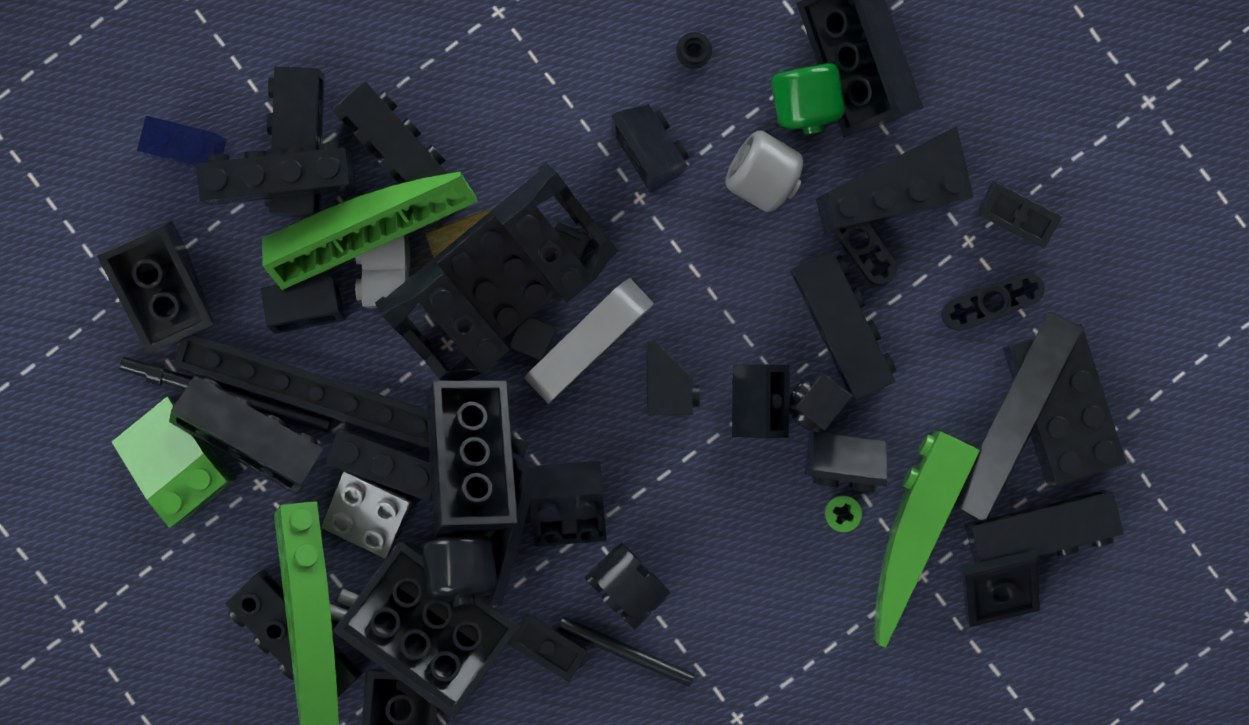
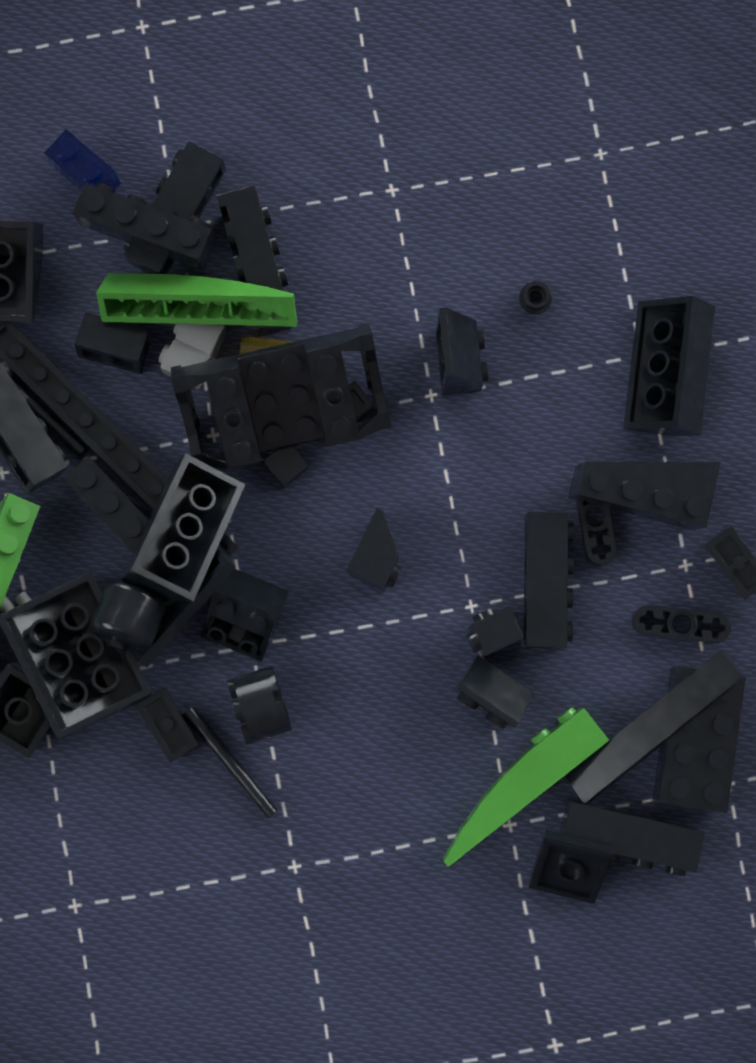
camera: 25 degrees right, 5 degrees down
(365, 513) = (75, 538): light grey hinge -> none
(588, 340) = (336, 484): light grey beam -> none
(760, 401) = (445, 608): black brick -> none
(765, 171) = (544, 423): light grey head -> none
(808, 97) = (609, 379): green head -> none
(852, 508) = (479, 737): bright green bush -> none

